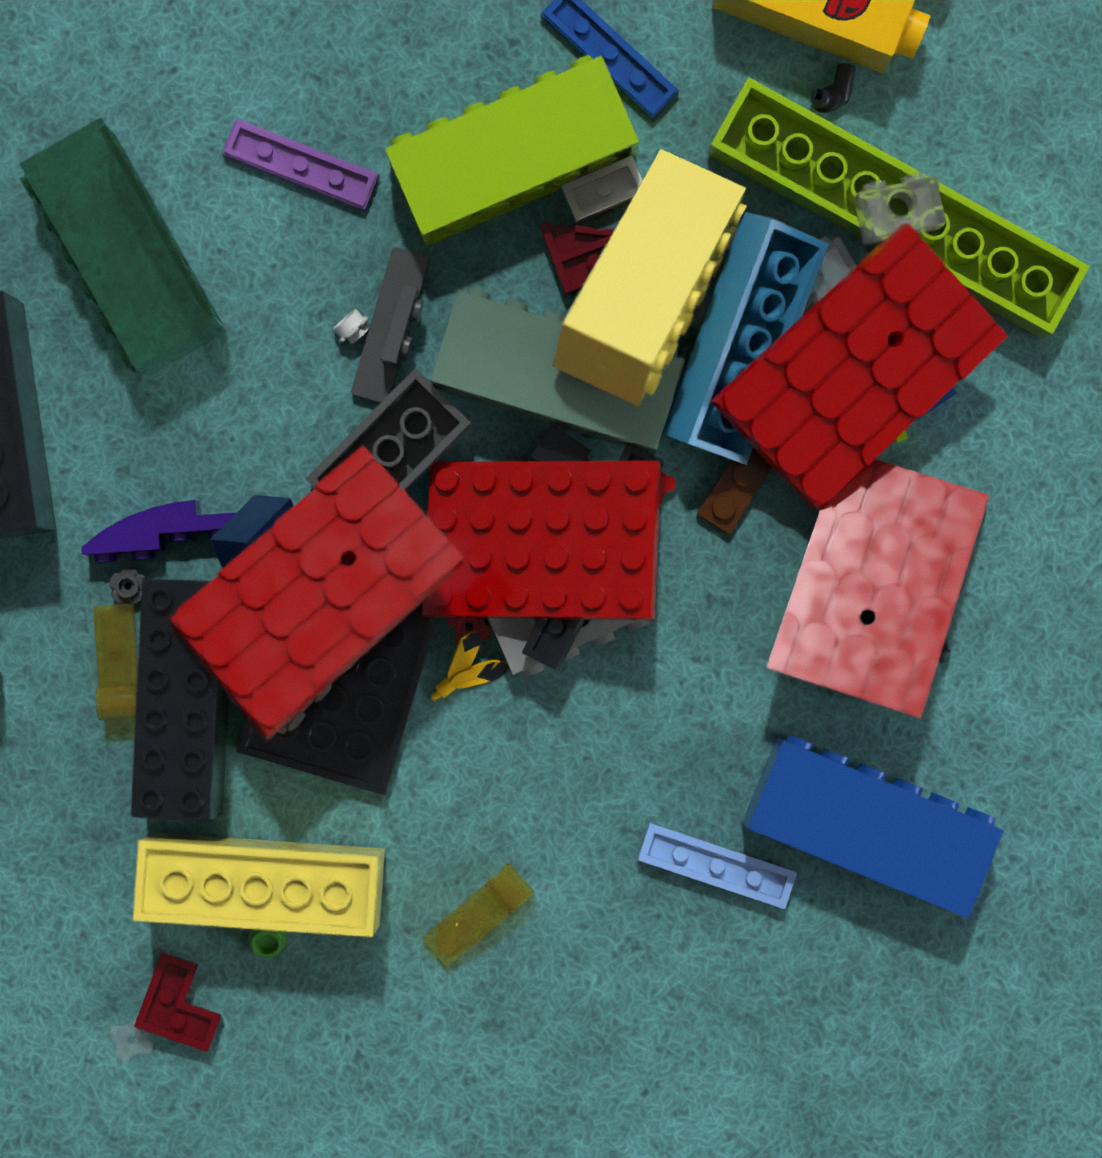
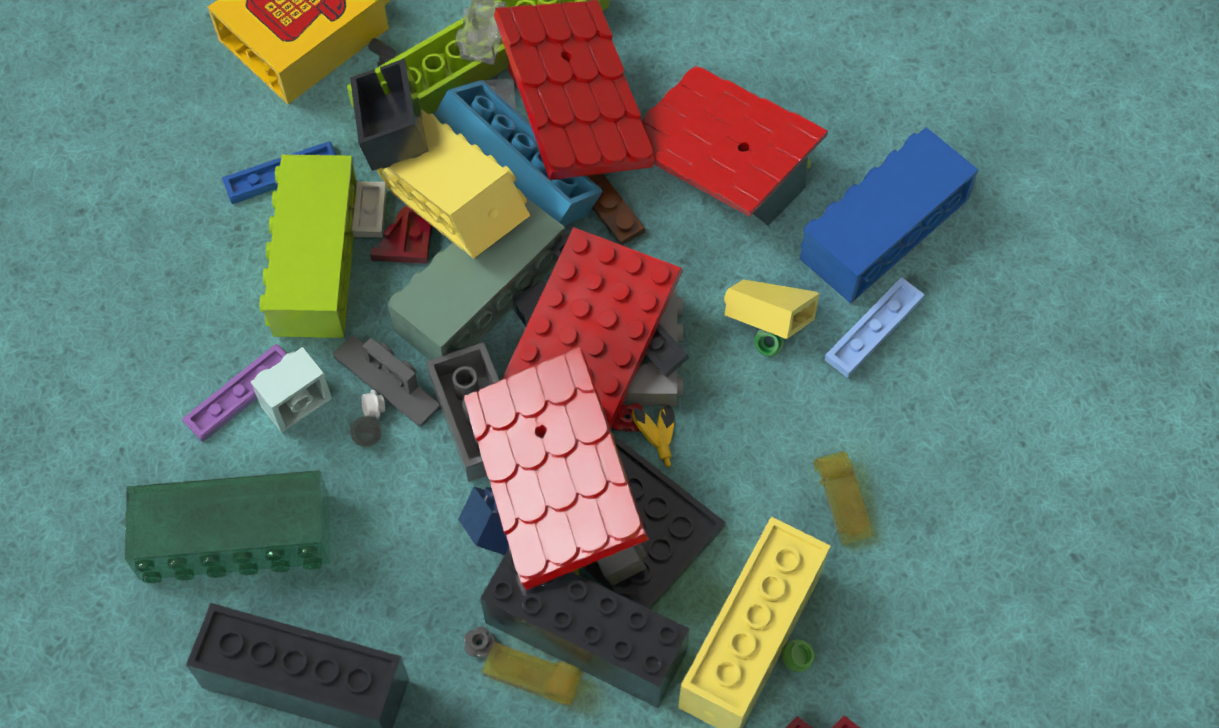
camera: 70 degrees left, 25 degrees down
(145, 531) = (444, 607): dark purple slope -> none
(315, 227) = (291, 389): none -> light aqua brick
(315, 336) = (366, 431): none -> clear smoke plate
(639, 749) = (766, 349): none -> green plate
(681, 735) = (771, 306): none -> light yellow slope
(699, 164) = (391, 123): none -> black piece

